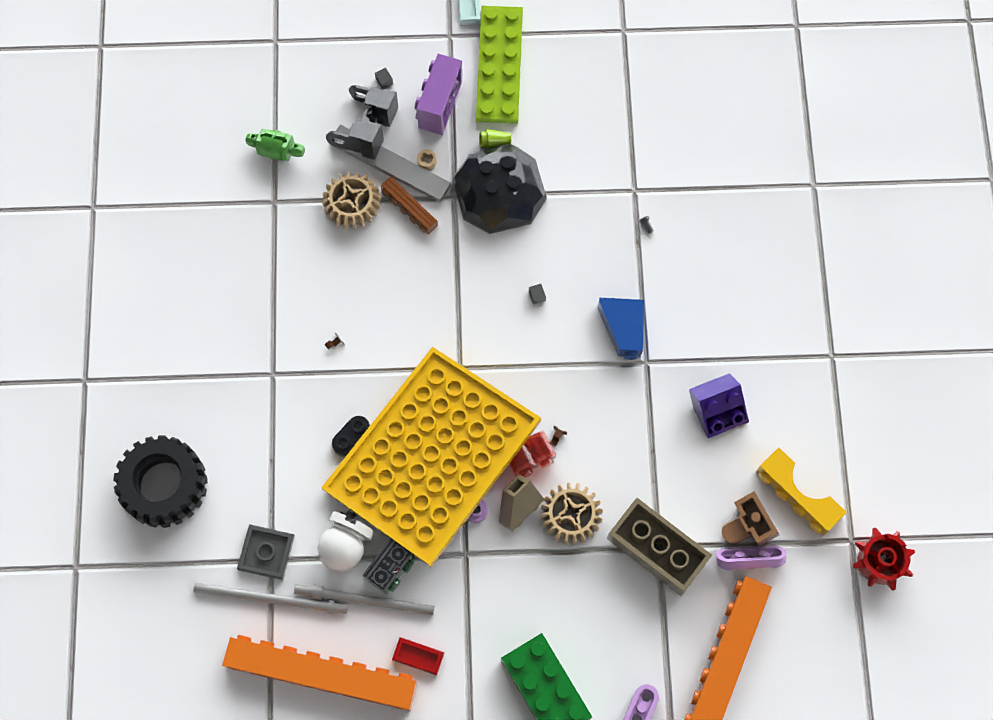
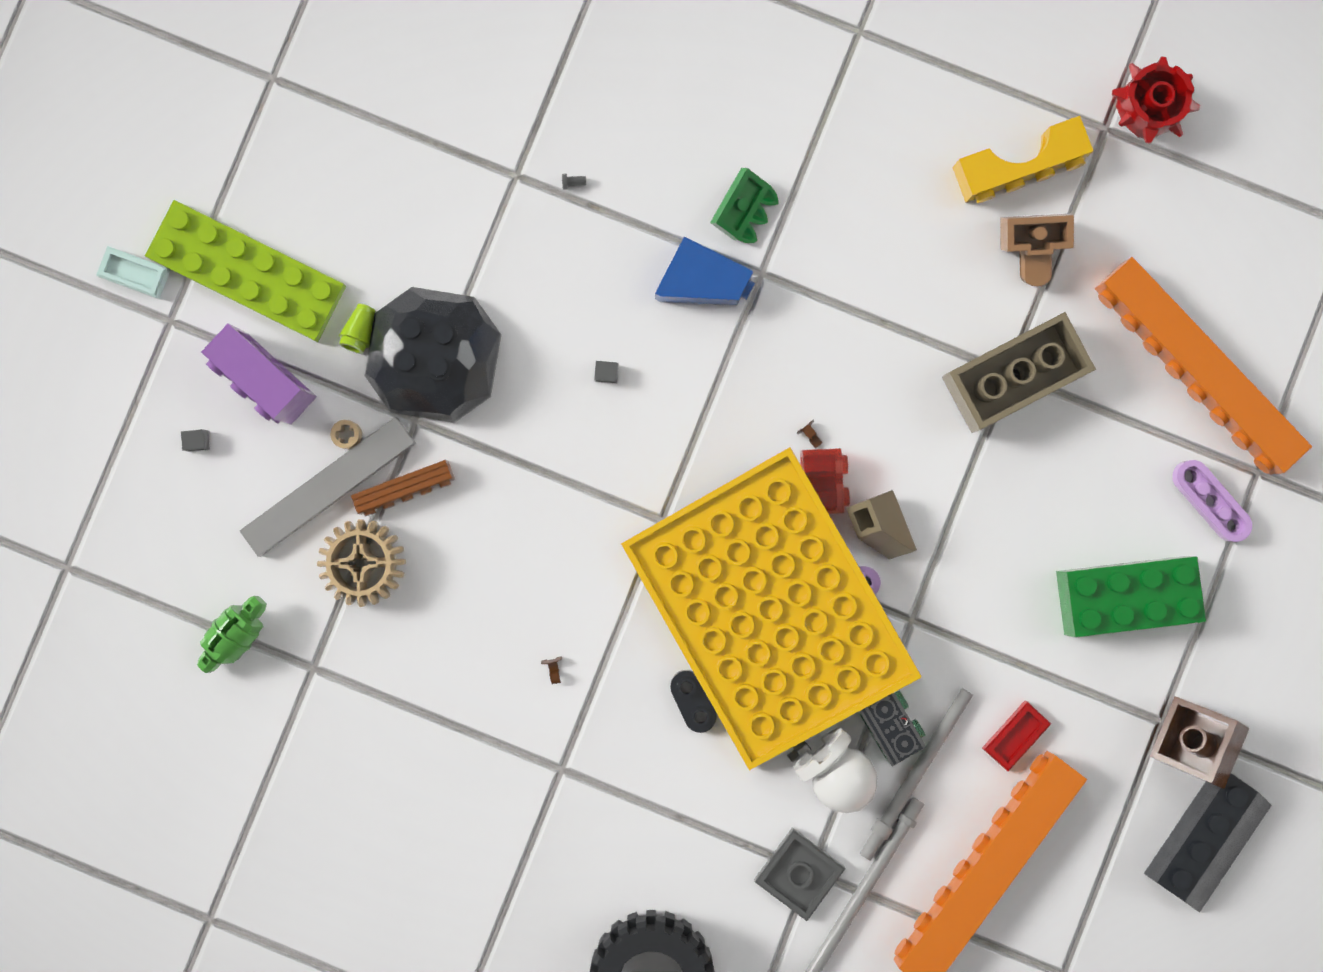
camera: 60 degrees left, 15 degrees up
(365, 134) = (275, 505): black piece -> none
(575, 523) = (924, 449): tan gear -> none
(682, 330) = (743, 206): none -> green plate
(719, 405) = (864, 206): dark purple slope -> none
(751, 557) = (1085, 251): lavender plate -> none

